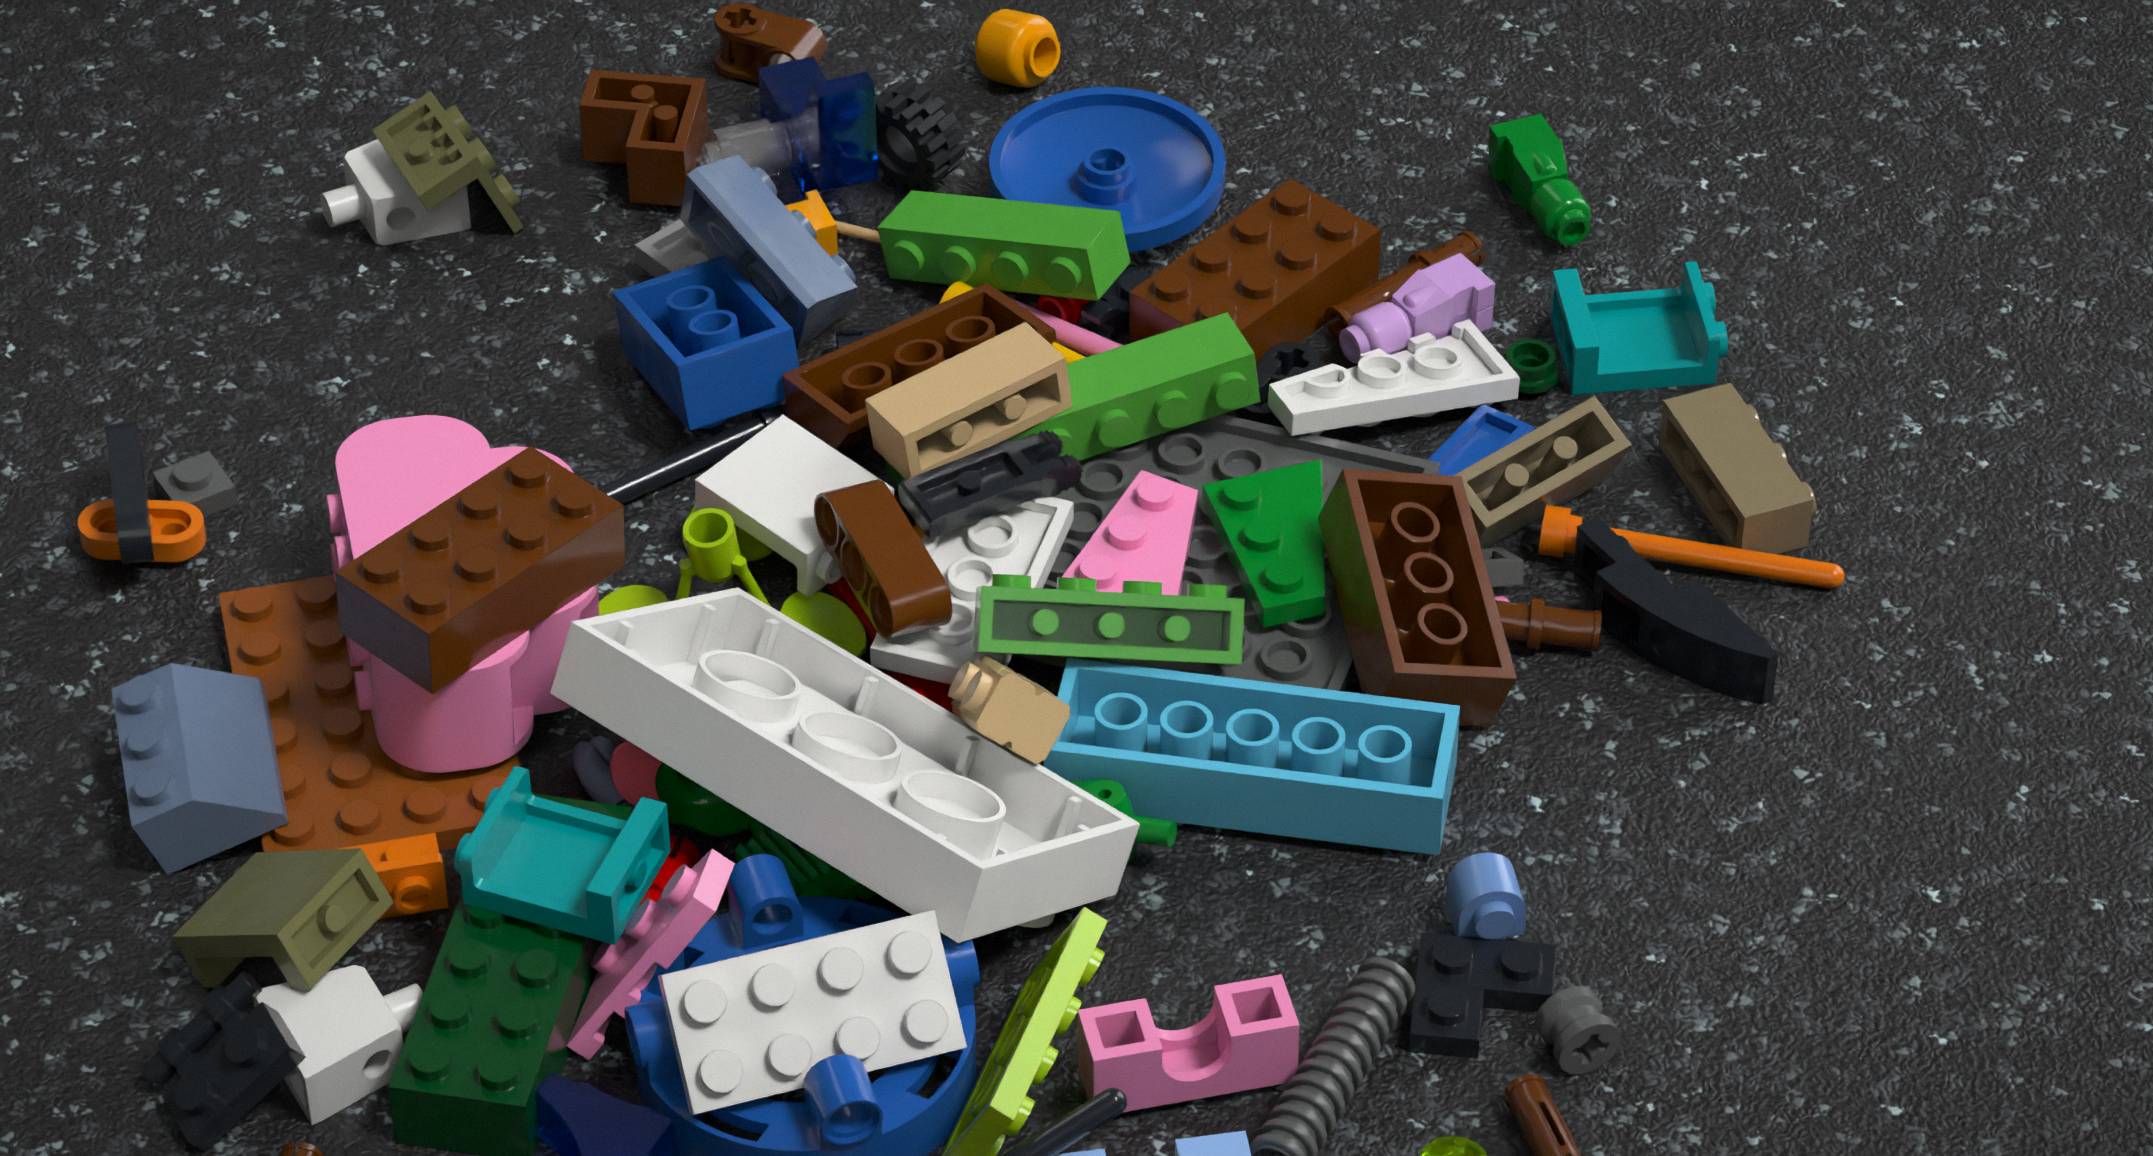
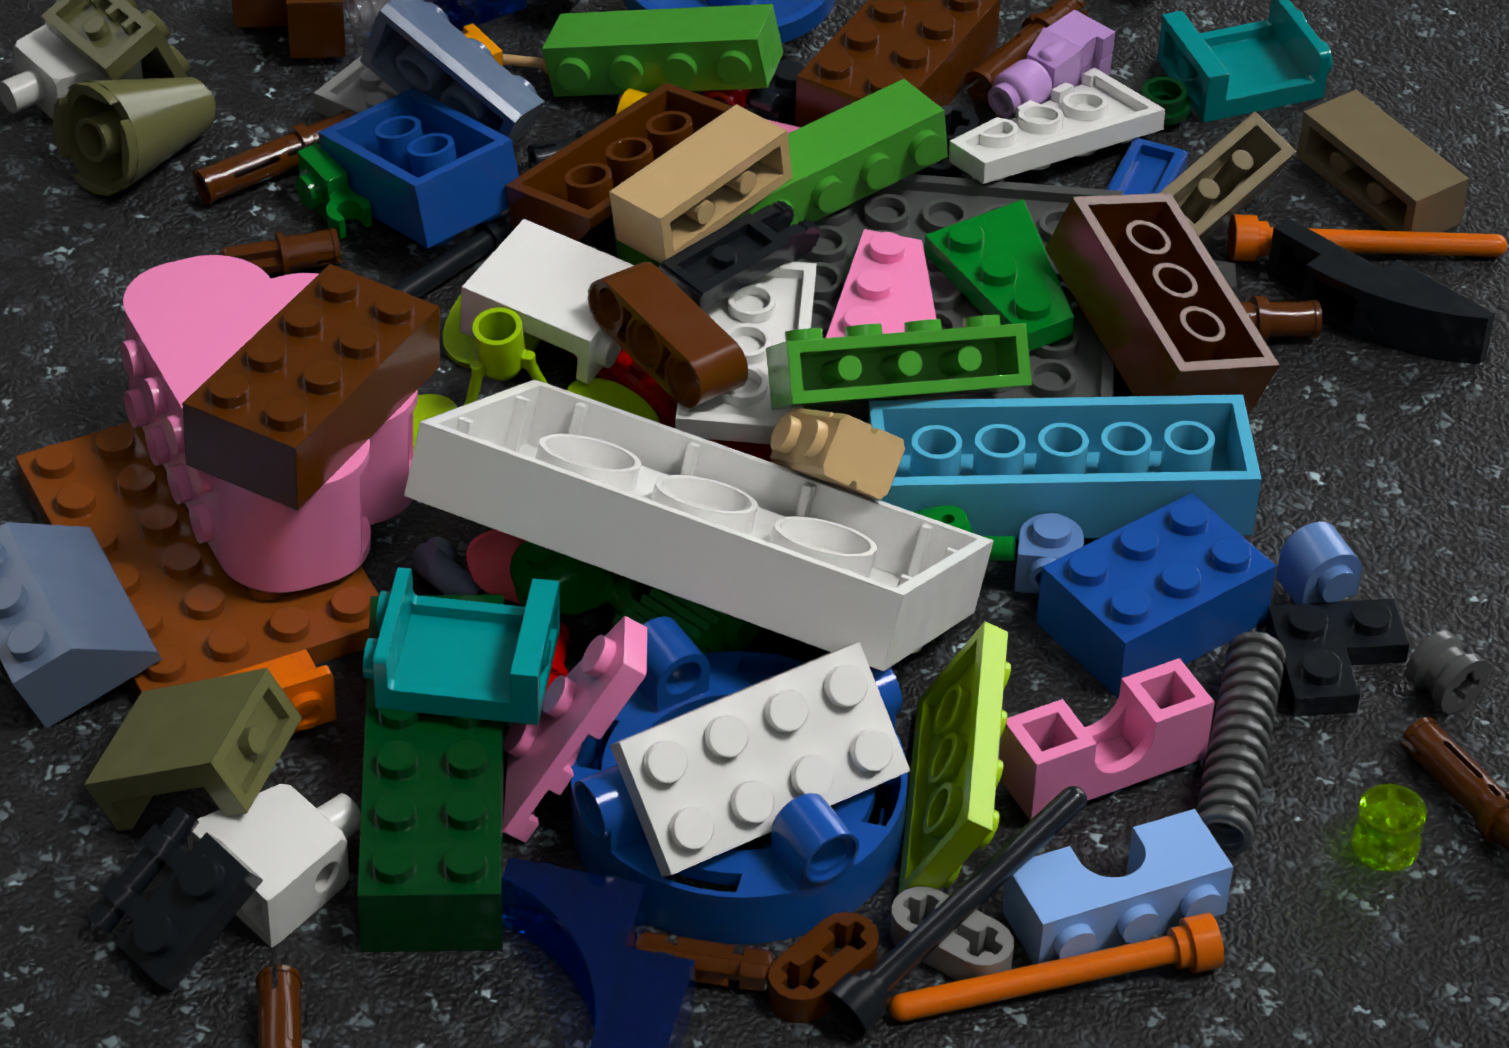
camera: 15 degrees left, 0 degrees up
(436, 259) = (128, 127): none -> olive cone
(510, 326) = (220, 178): none -> reddish brown pin
(547, 416) = (290, 252): none -> reddish brown axle
(612, 350) = (326, 189): none -> green plate
(1212, 847) = (1042, 542): none -> medium blue plate
(1304, 900) = (1155, 592): none -> blue brick

